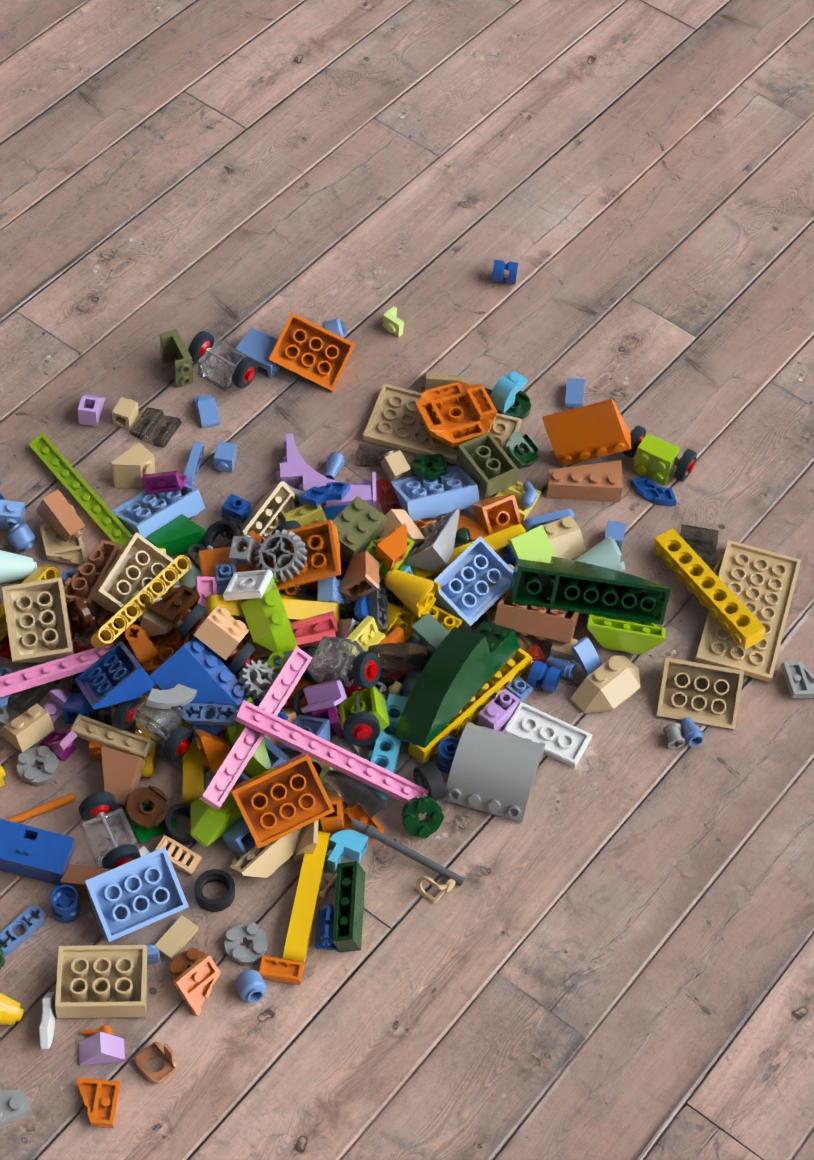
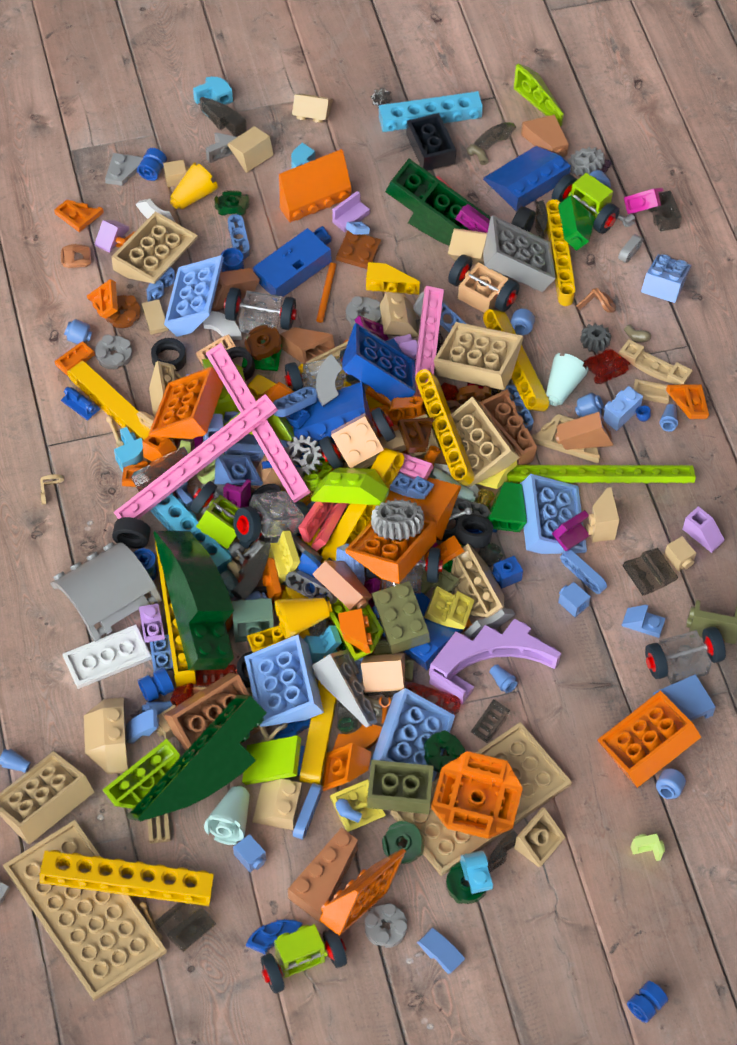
camera: 130 degrees right, 5 degrees up
(246, 557) = (430, 502): light grey brick -> none
(247, 585) = (385, 478): white tile -> none
(324, 695) = (246, 489): lavender panel -> none
(331, 491) = (465, 631): blue tile -> none
(349, 907) = (80, 419): dark green brick -> none
(372, 832) = (123, 468): dark grey bar -> none
(395, 465) = (464, 722): tan brick -> none
(424, 827) = (107, 510): dark green plate -> none
(674, 736) = (21, 744): light grey bush -> none

